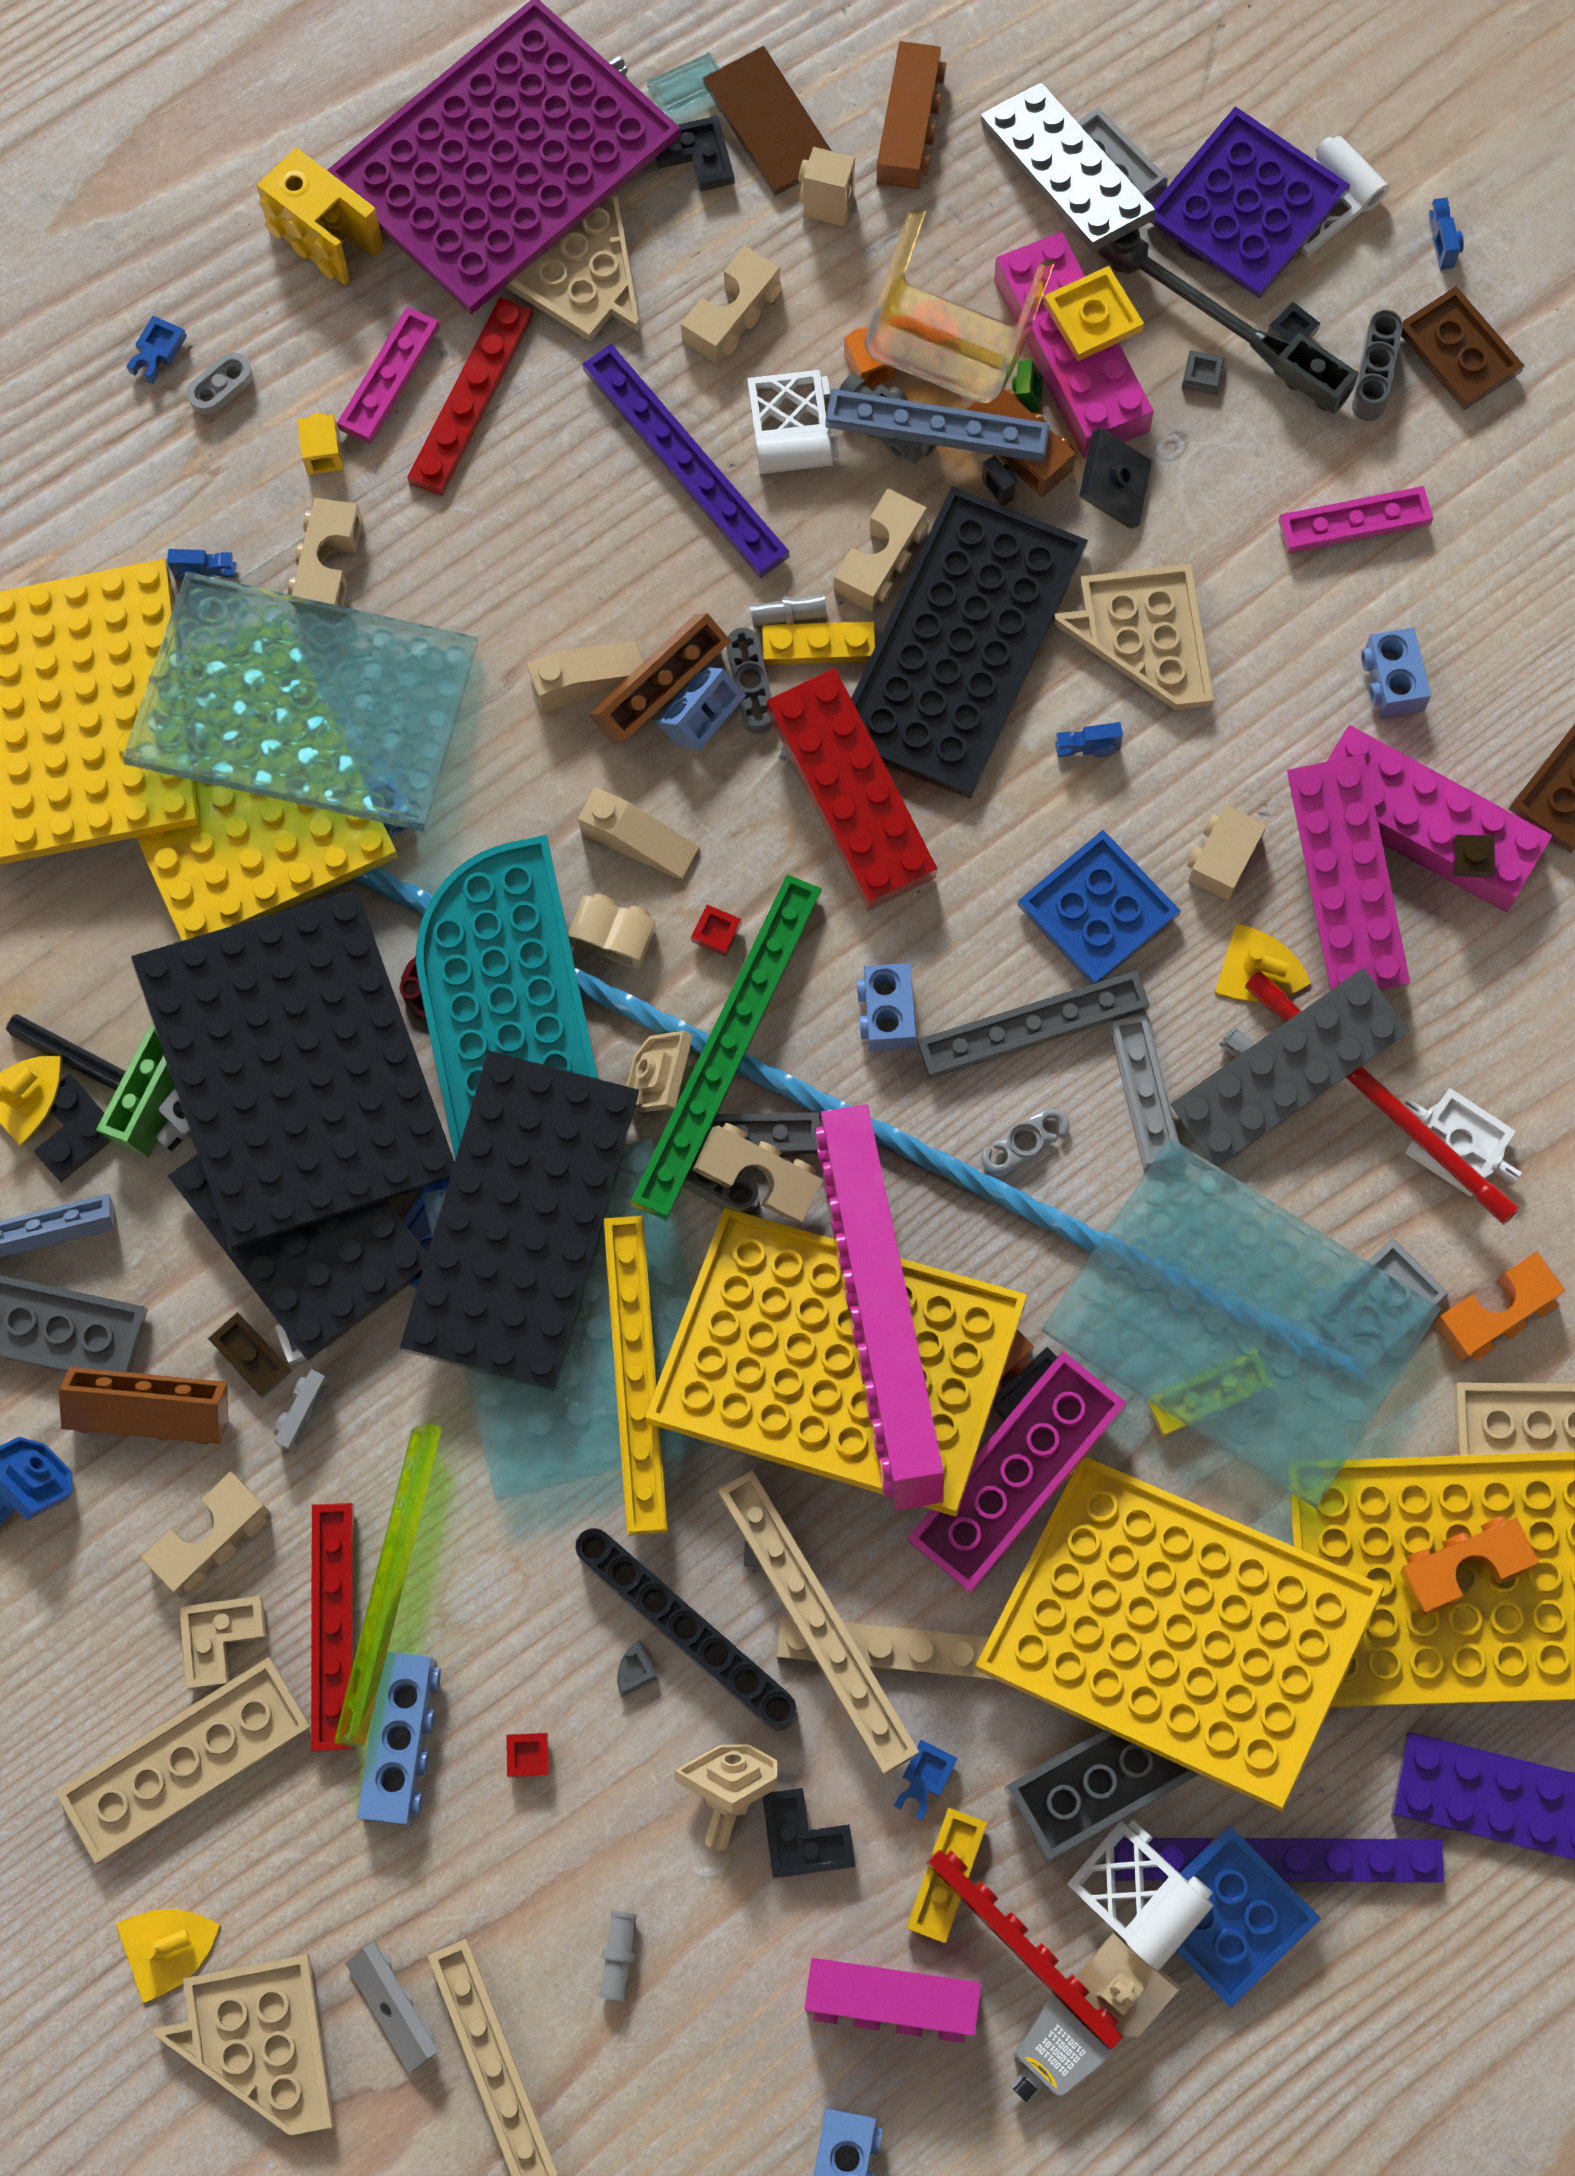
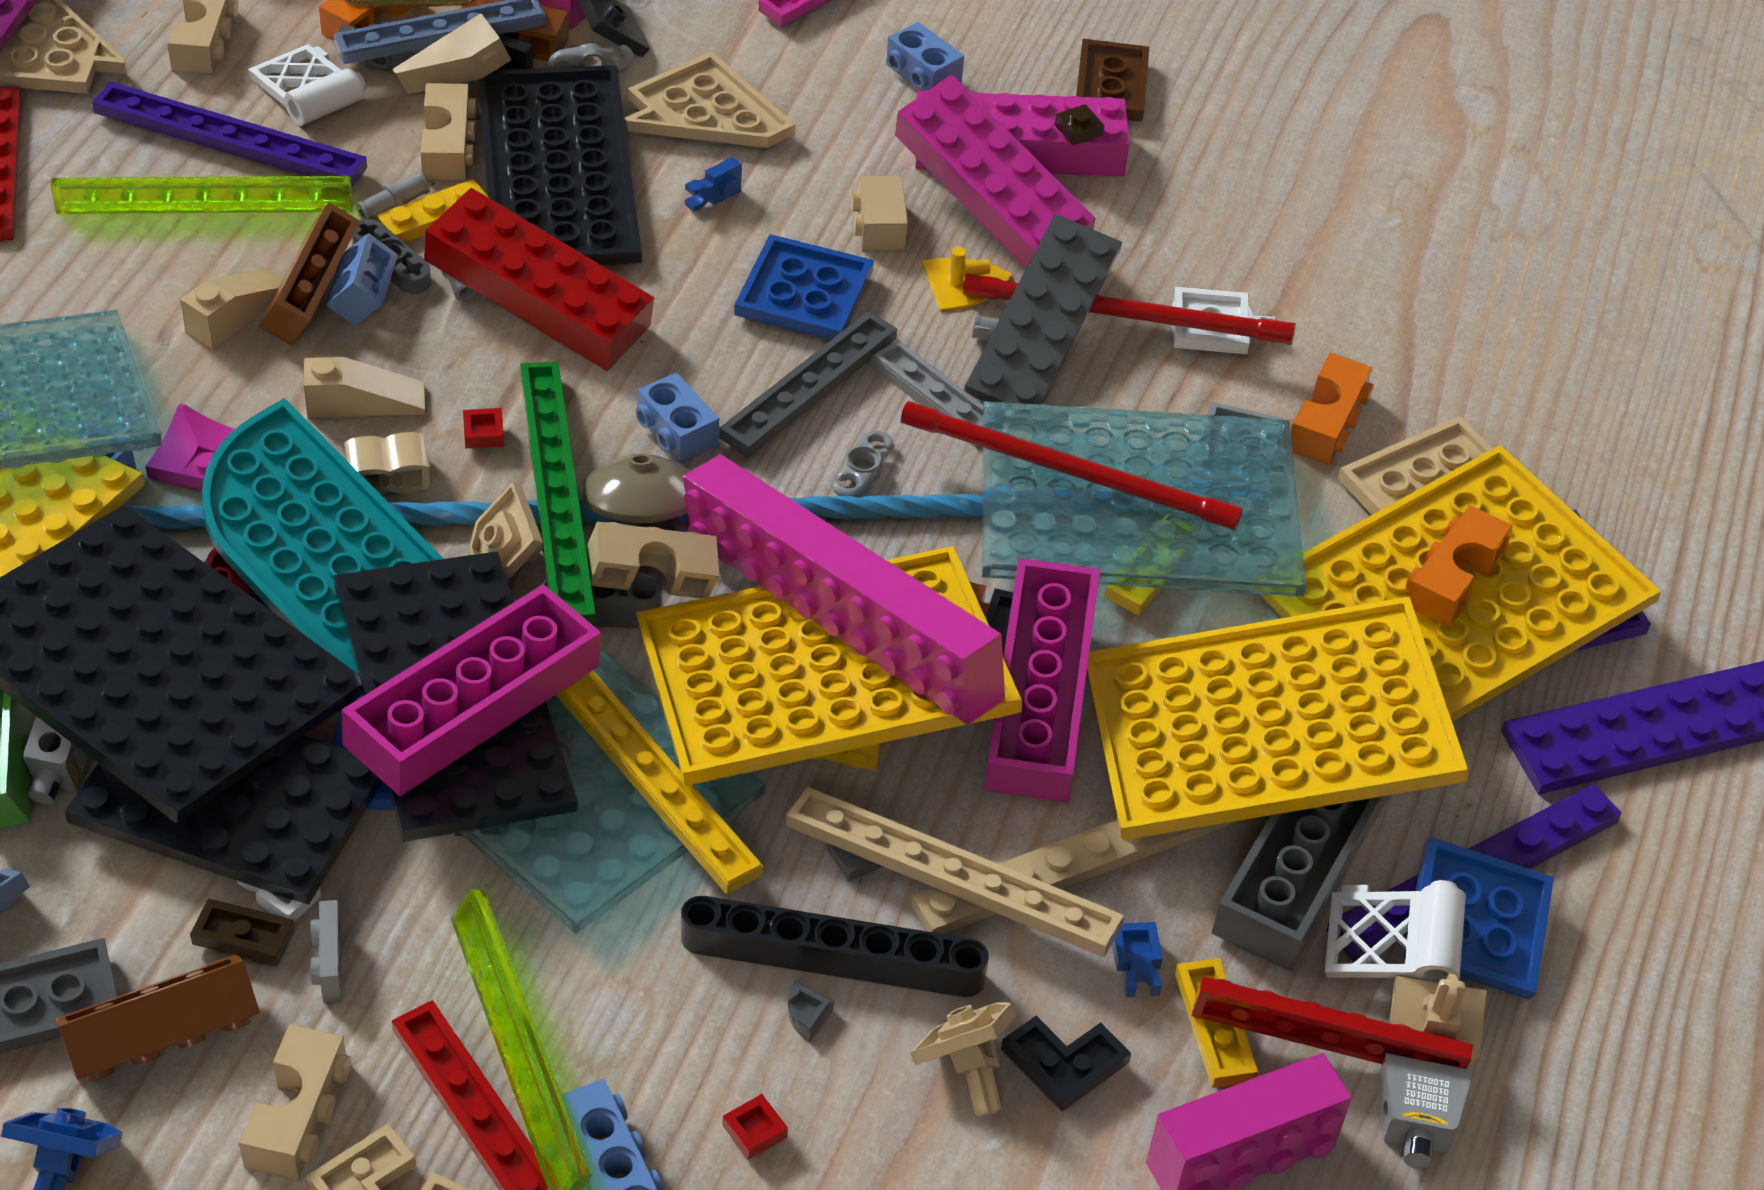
camera: 40 degrees left, 25 degrees down
(466, 827) = (186, 449): none -> dark pink plate
(517, 1249) = (470, 689): none -> dark pink brick
(623, 528) = (200, 194): none -> clear neon green tile
(800, 1089) = (636, 489): none -> dark tan dish
(944, 468) = (456, 58): none -> tan slope
(1069, 518) = (577, 54): none -> light grey piece
(1277, 1380) = (1206, 508): none -> red piece

